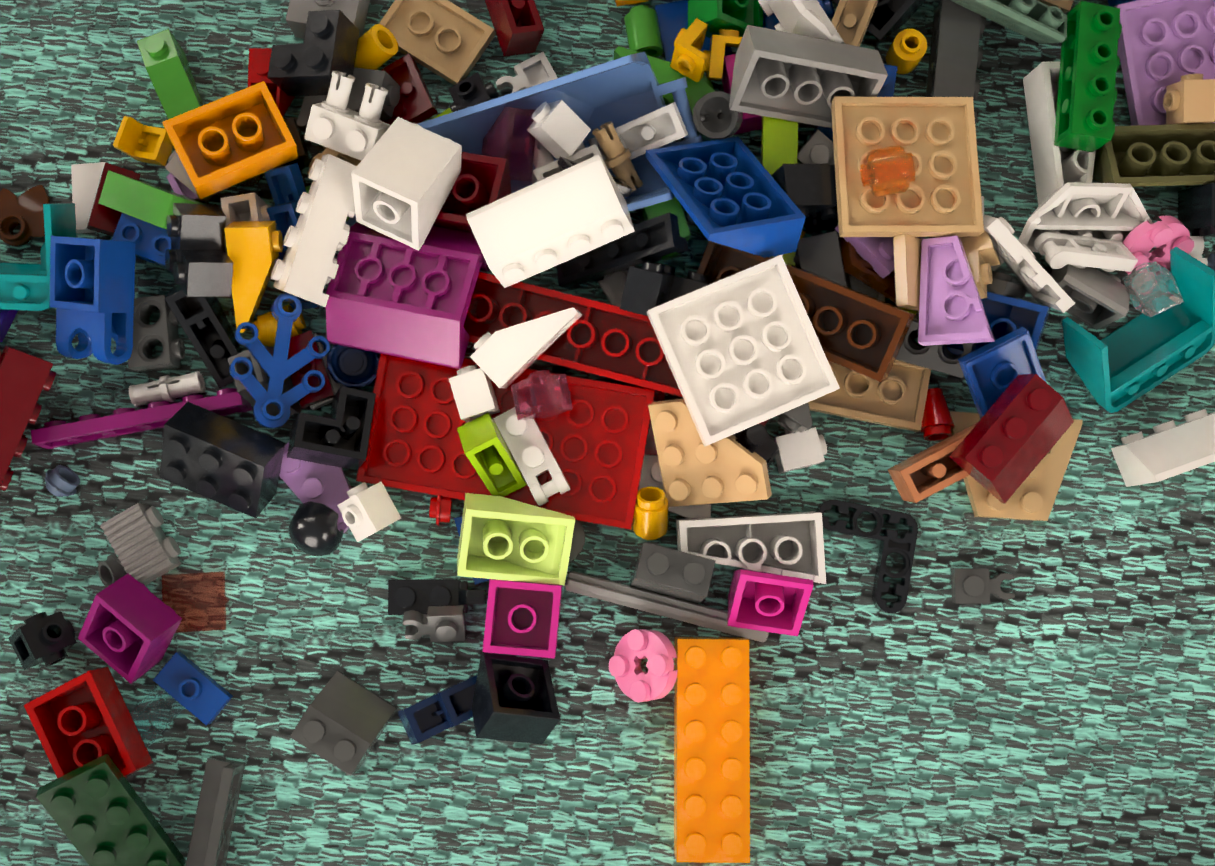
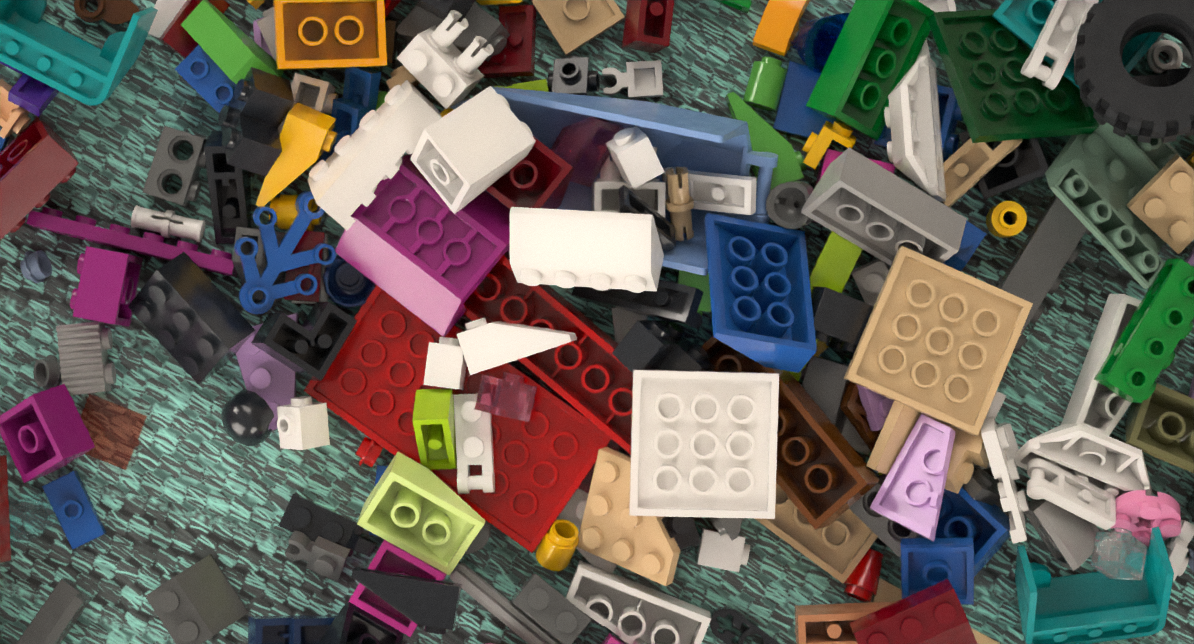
camera: 30 degrees right, 5 degrees up
(93, 296) = (141, 114): blue brick -> none
(129, 466) = (106, 286): none -> magenta brick
(547, 618) = (418, 598): none -> black slope
(687, 52) = (787, 134): yellow bracket -> none
(888, 171) = (912, 342): clear orange head -> none

